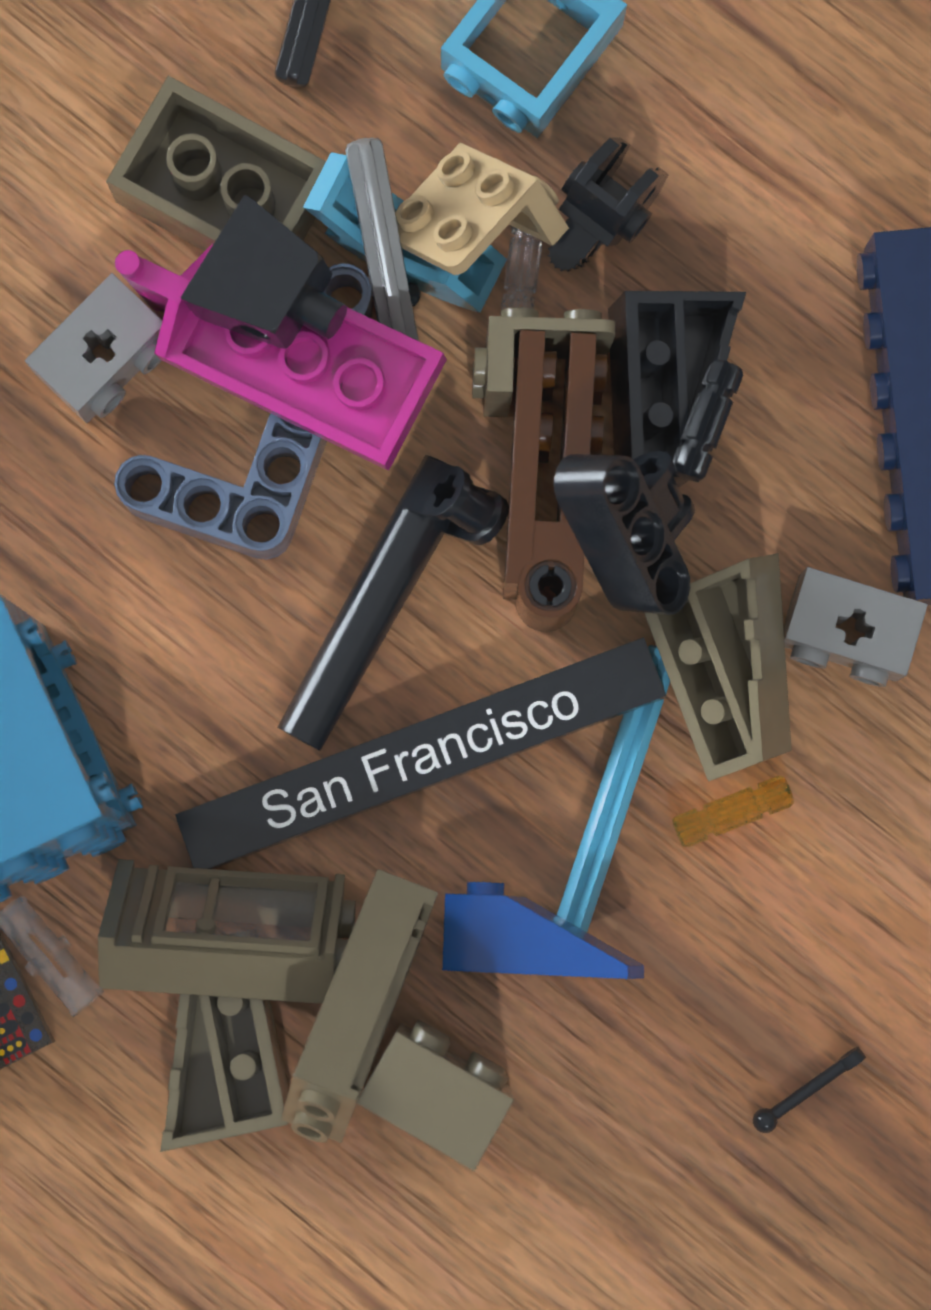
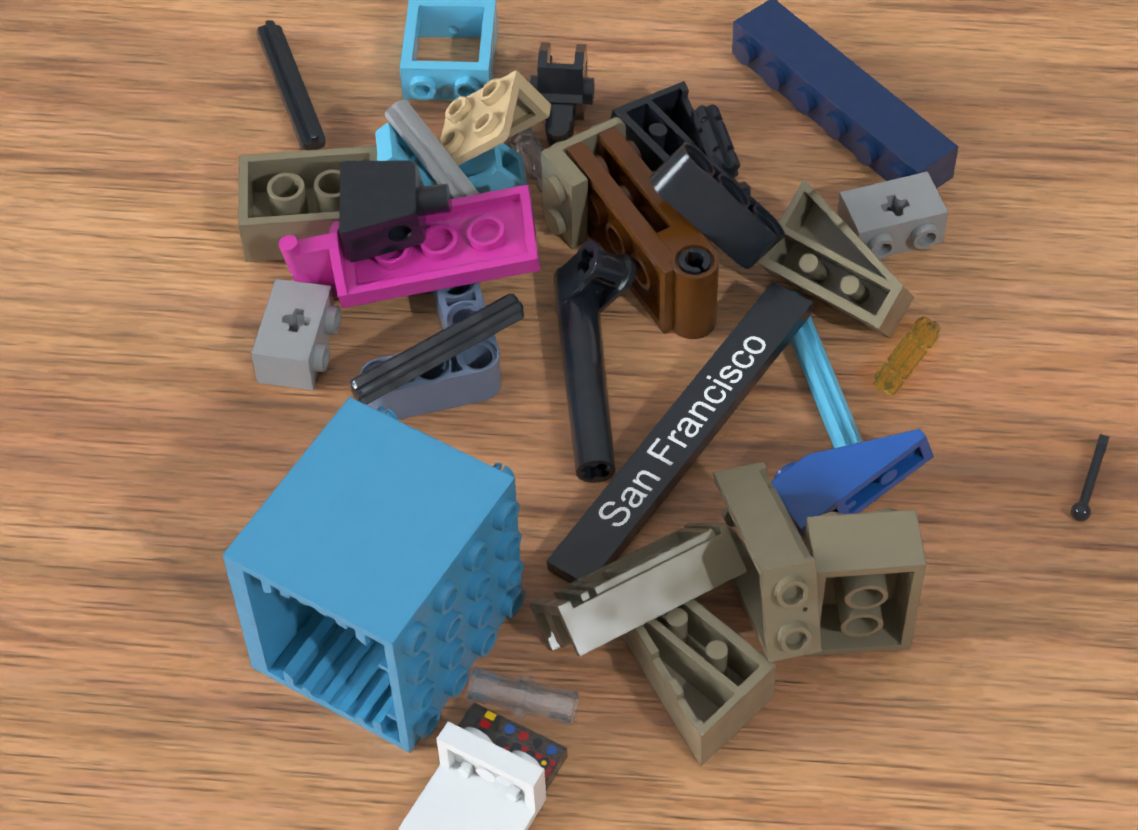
camera: 30 degrees left, 30 degrees down
(215, 496) = (436, 349): none -> black axle

